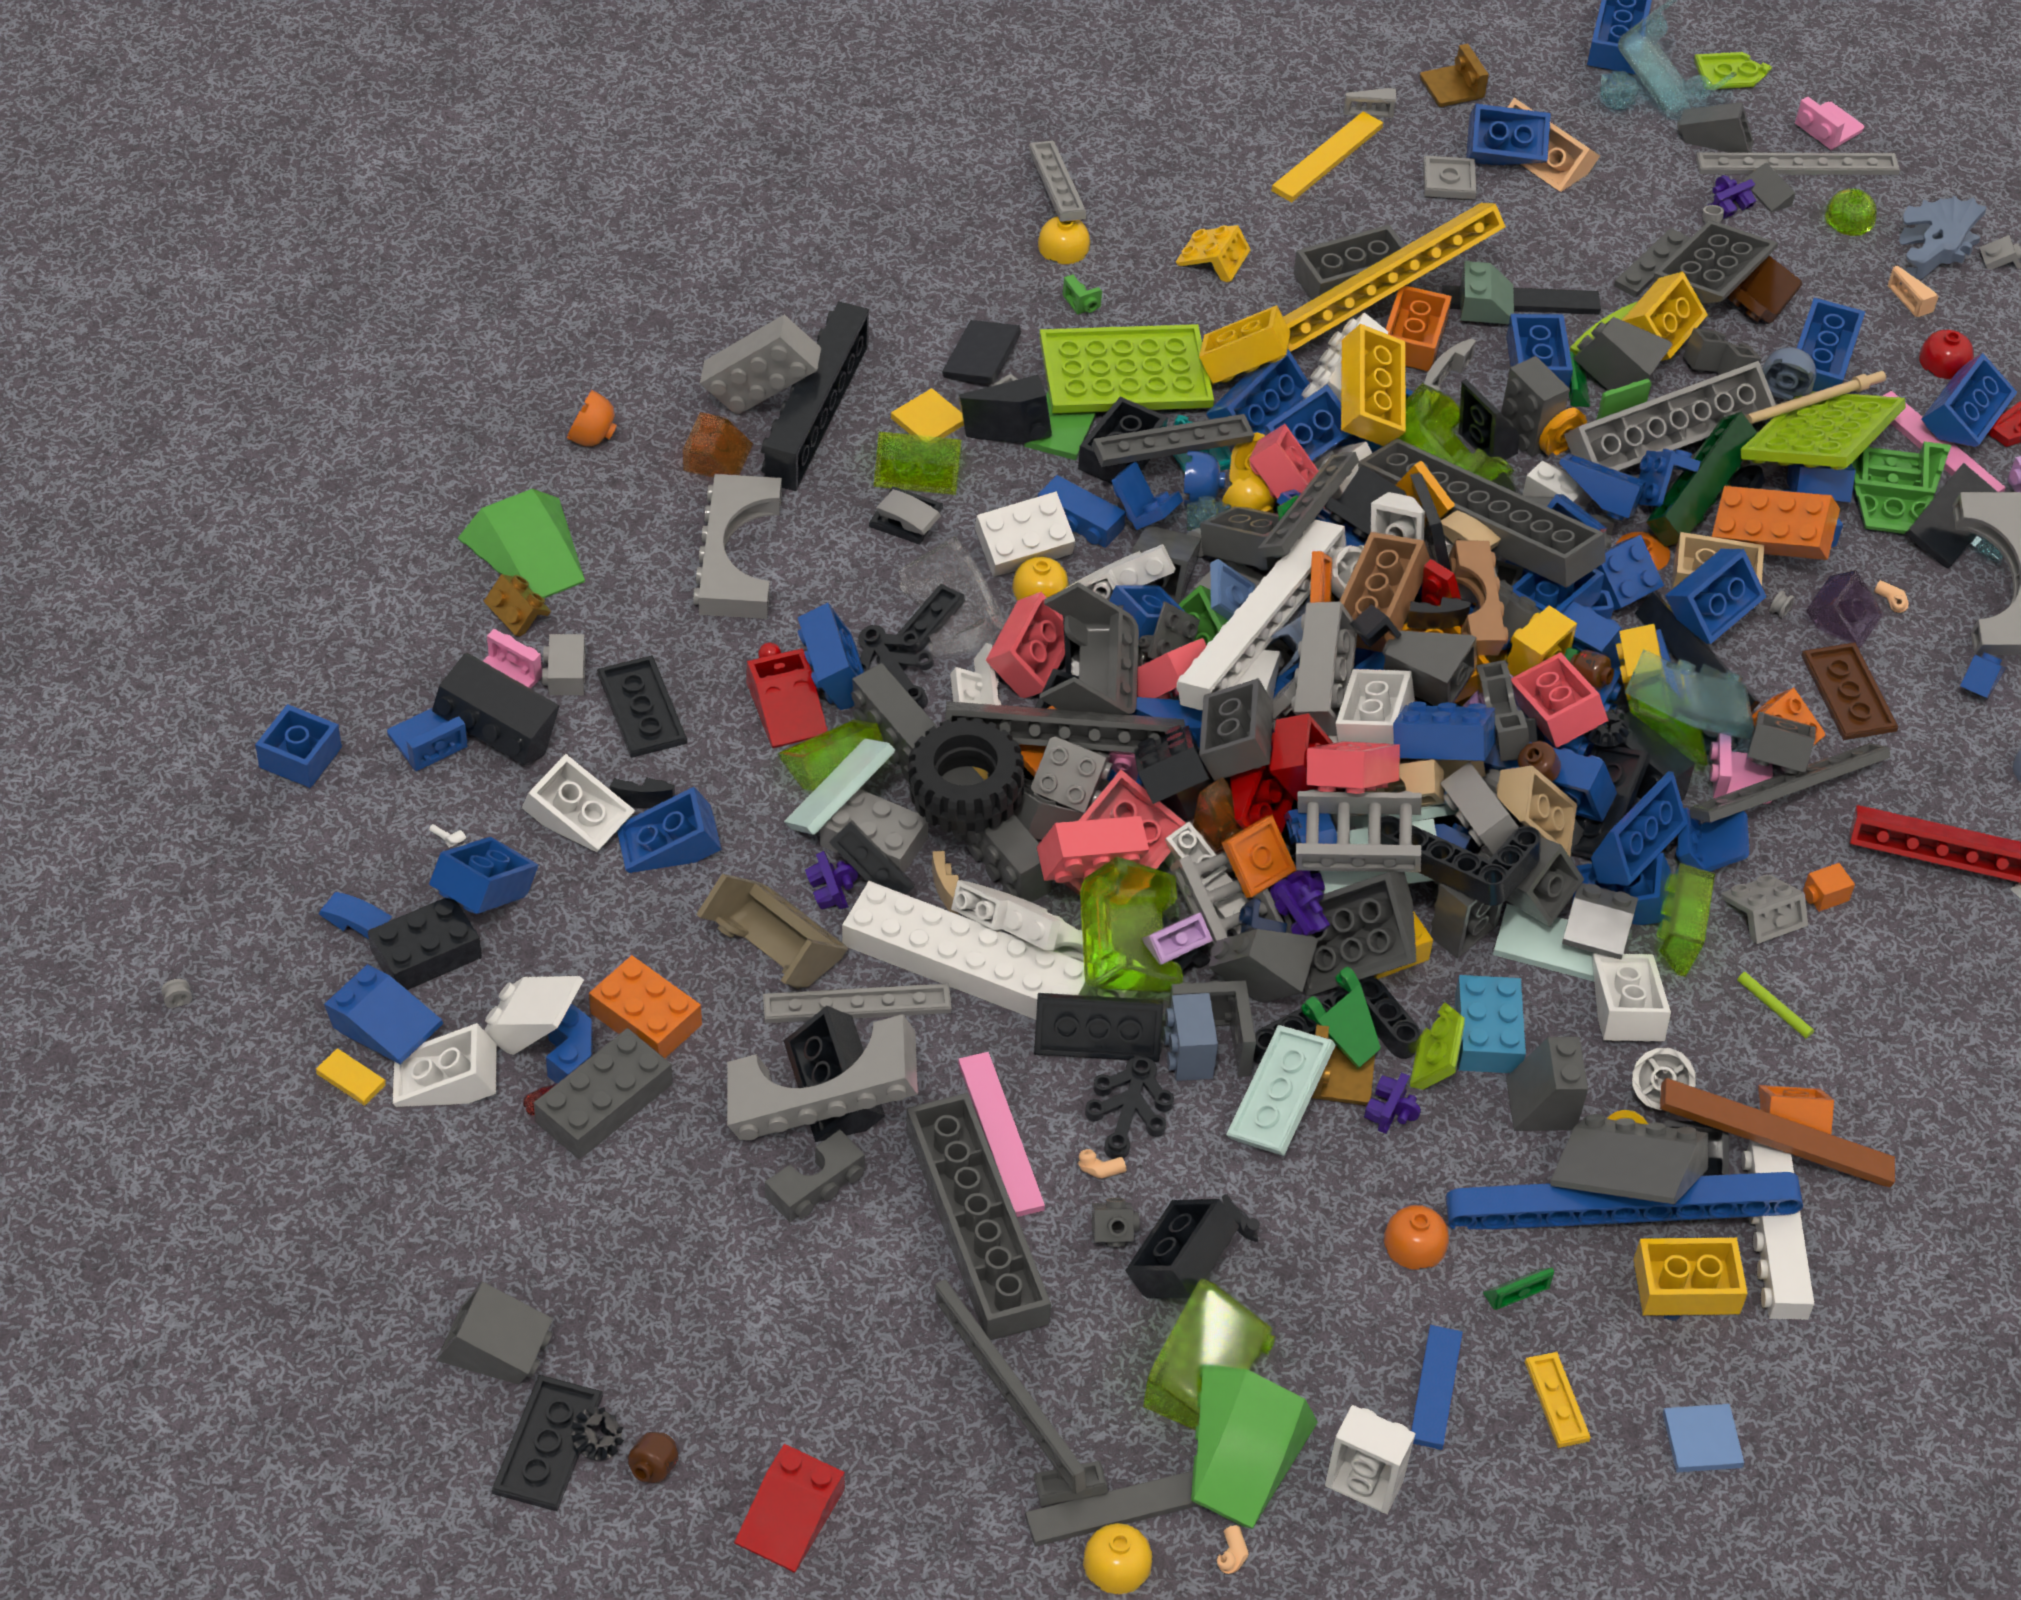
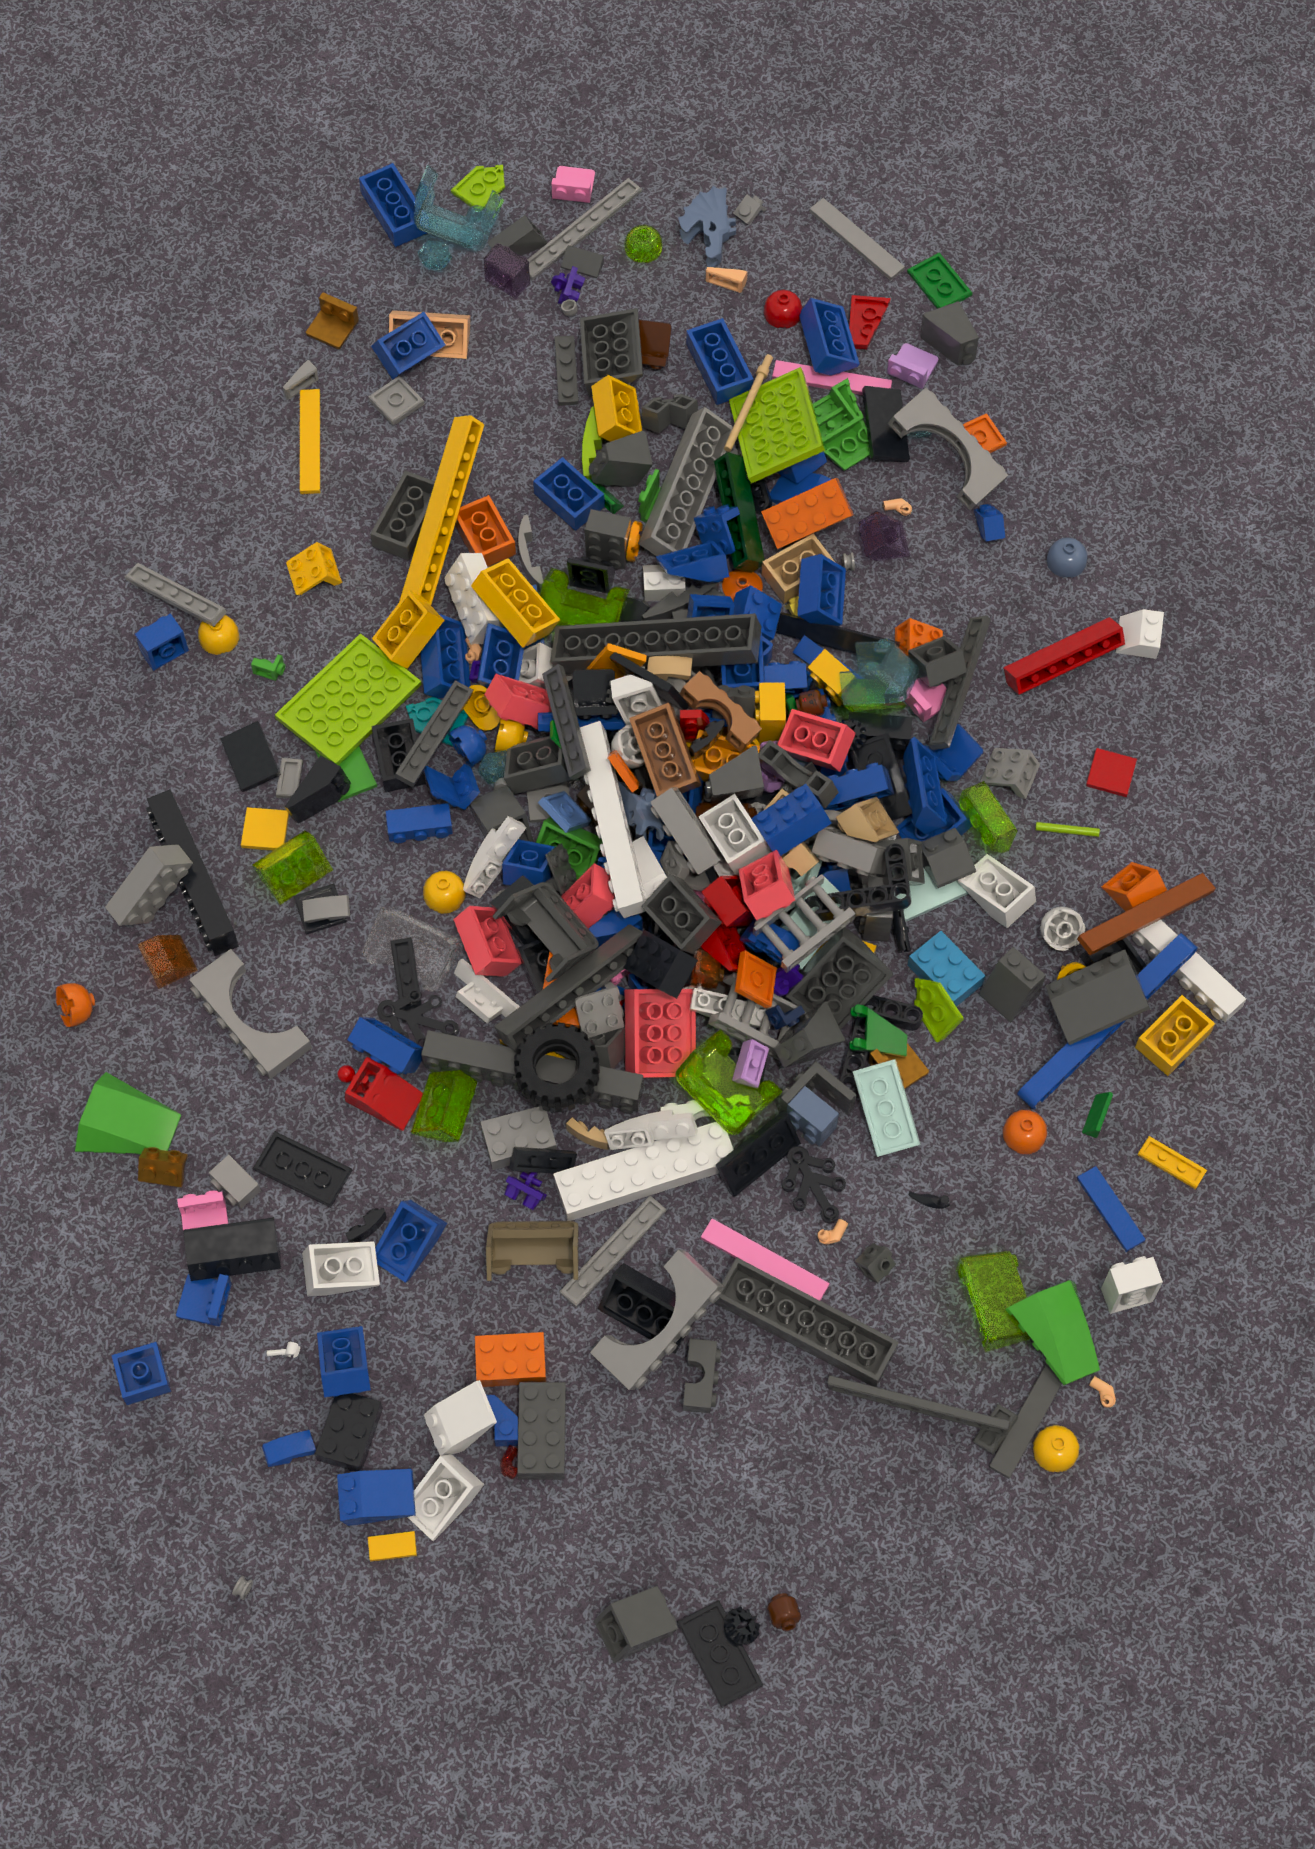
camera: 40 degrees left, 15 degrees up
(791, 1507) = (878, 1574): red slope -> none
(839, 786) = (478, 1128): light aqua tile -> none
(1000, 205) = (161, 641): none -> blue brick
(1024, 532) = (409, 868): white brick -> none
(1084, 846) = (668, 1053): coral brick -> none
(1182, 1248) = (927, 1248): black brick -> none
(1303, 906) = (804, 989): dark purple hips -> none
(1373, 625) = (693, 783): black panel -> none
(1394, 1091) = (944, 1071): dark purple hips -> none
(1480, 953) = (901, 931): none -> black pin
(1485, 294) = (501, 475): sand green slope -> none
(1541, 757) = (855, 789): reddish brown head -> none
(1543, 300) = (518, 459): black tile -> none
(1677, 141) = (507, 270): none -> clear purple brick
(1703, 1438) = (1256, 1121): medium blue tile -> none
(1790, 373) = (724, 397): sand blue cylinder -> none
(1828, 887) = (1032, 732): orange brick -> none
(1849, 691) = (930, 590): reddish brown tile -> none
(1885, 990) = (1111, 772): none -> red tile

